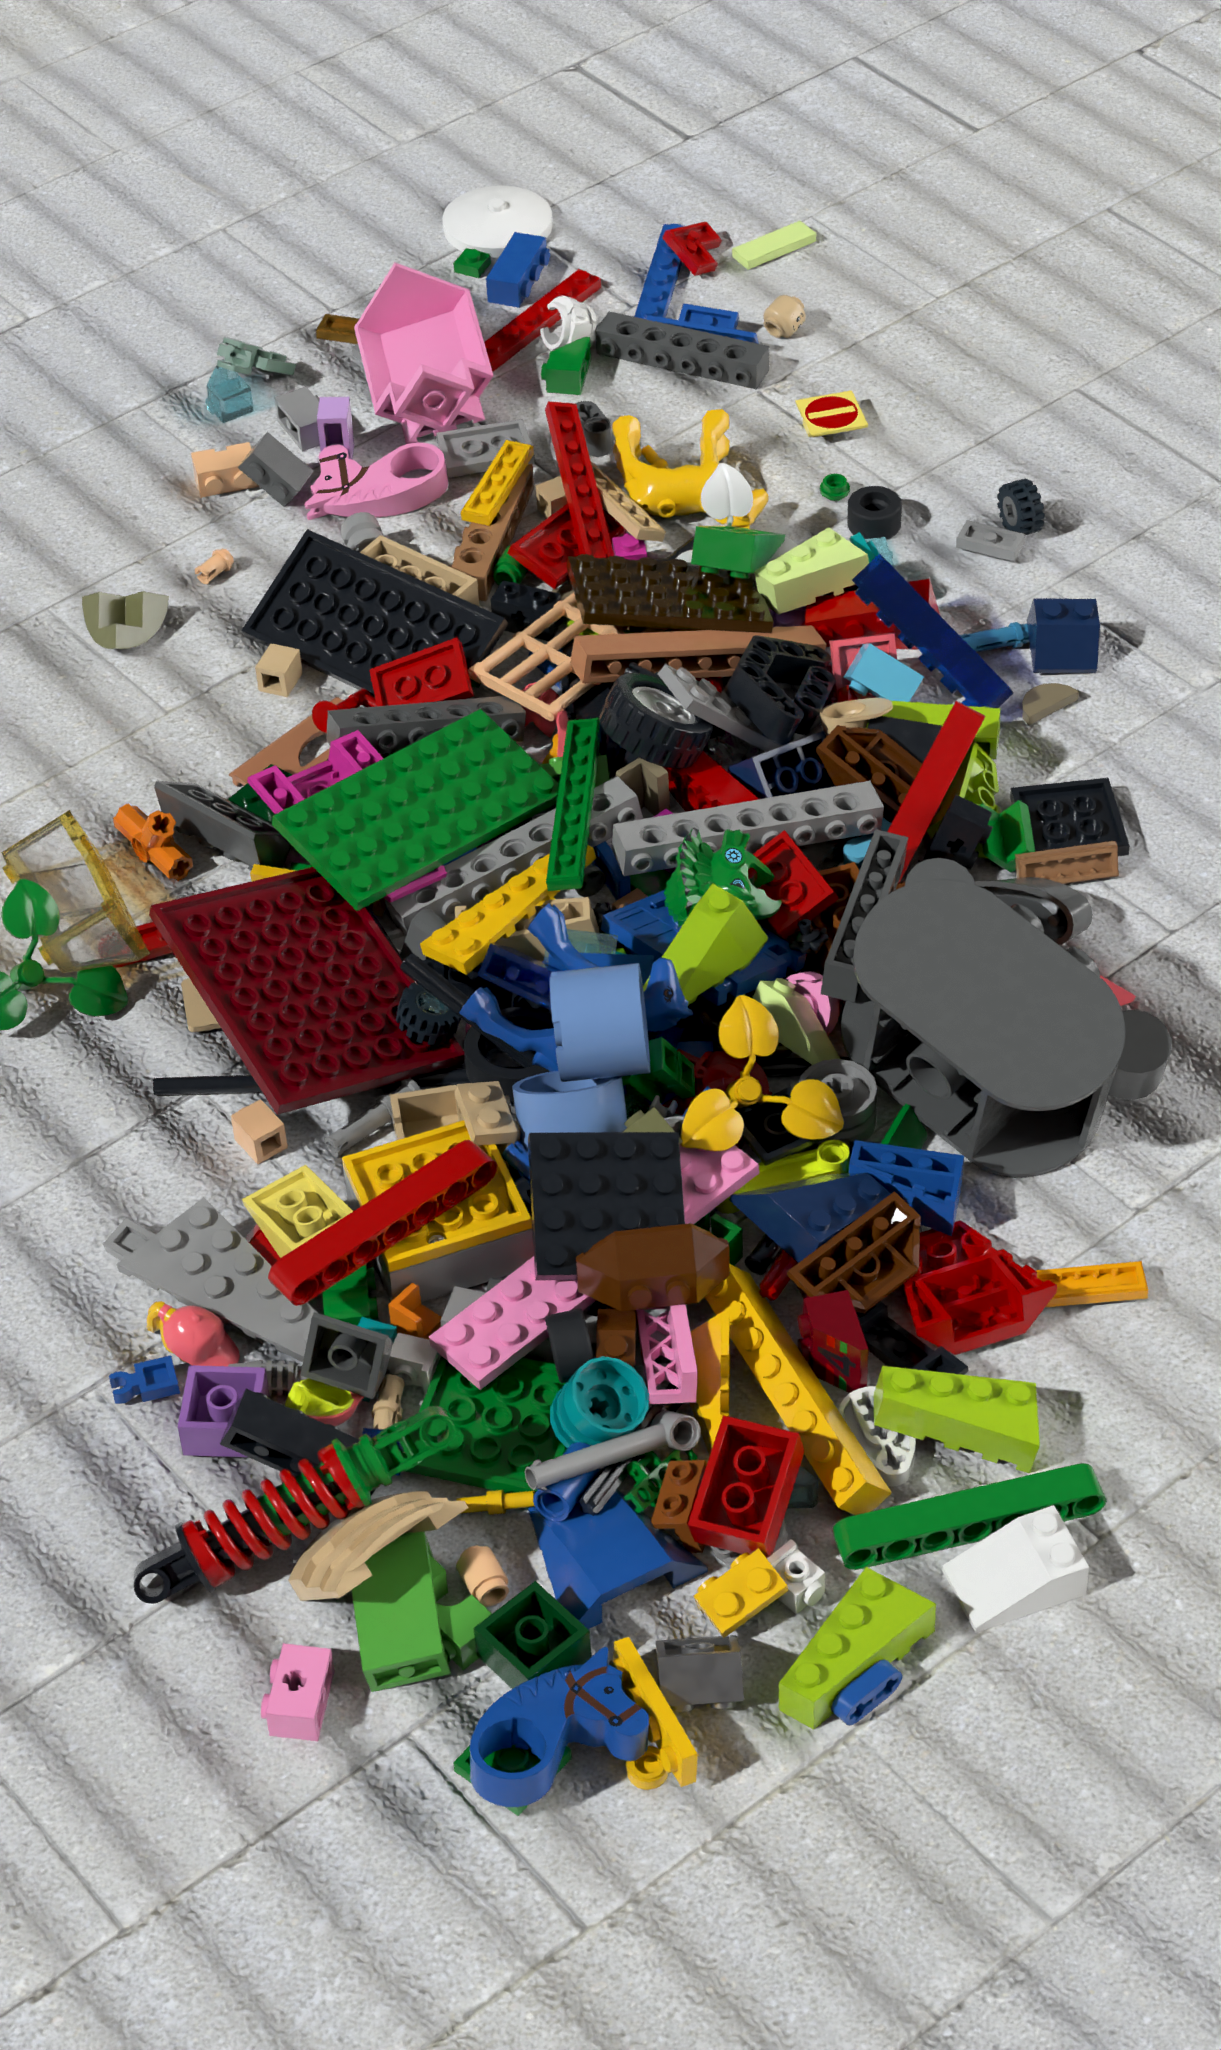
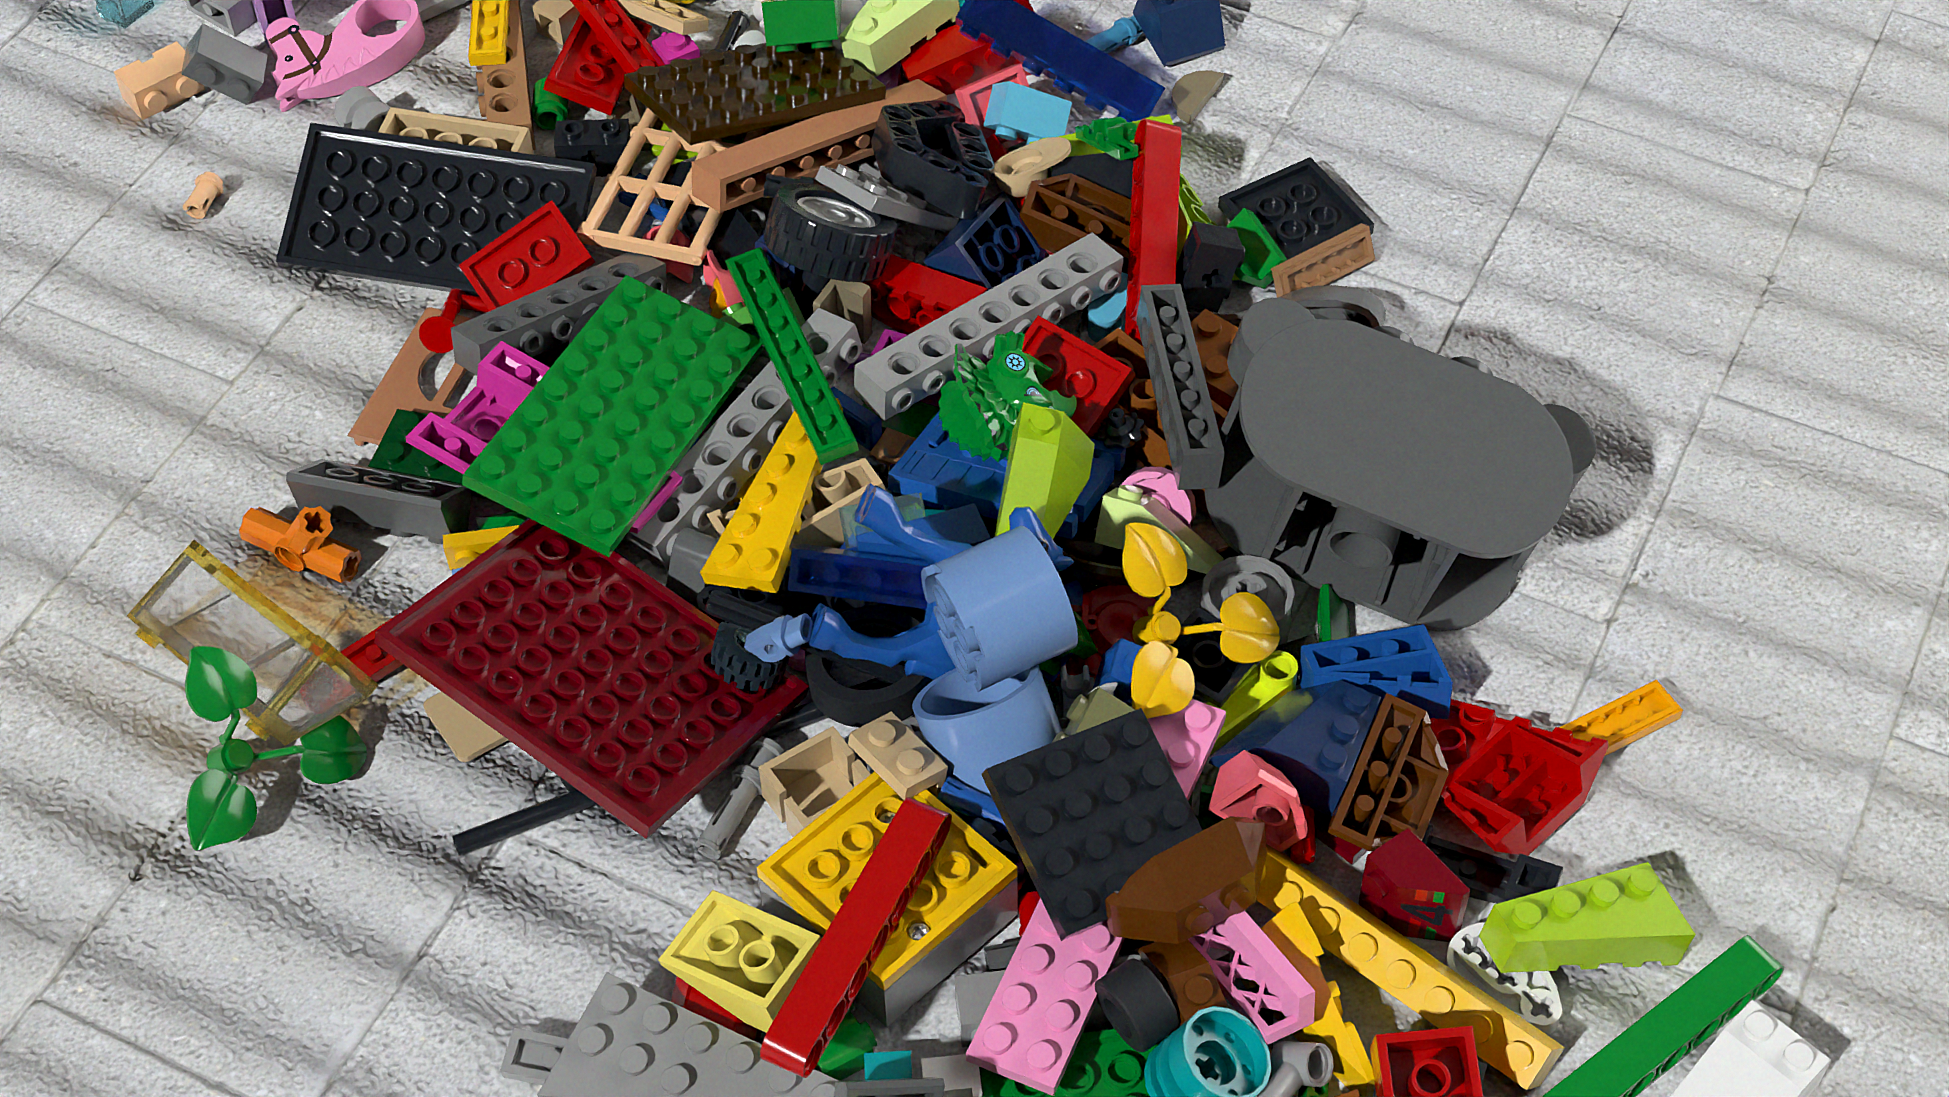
camera: 25 degrees left, 5 degrees up
(123, 620) = (127, 289): olive brick -> none
(259, 1131) = (614, 860): light nougat brick -> none
(278, 670) = (345, 295): tan brick -> none
(412, 1316) = (920, 1030): orange panel -> none
(444, 1004) = (779, 637): none -> medium blue piece
(748, 1235) = (1256, 789): none -> coral slope
(930, 709) = (1110, 136): none -> green piece

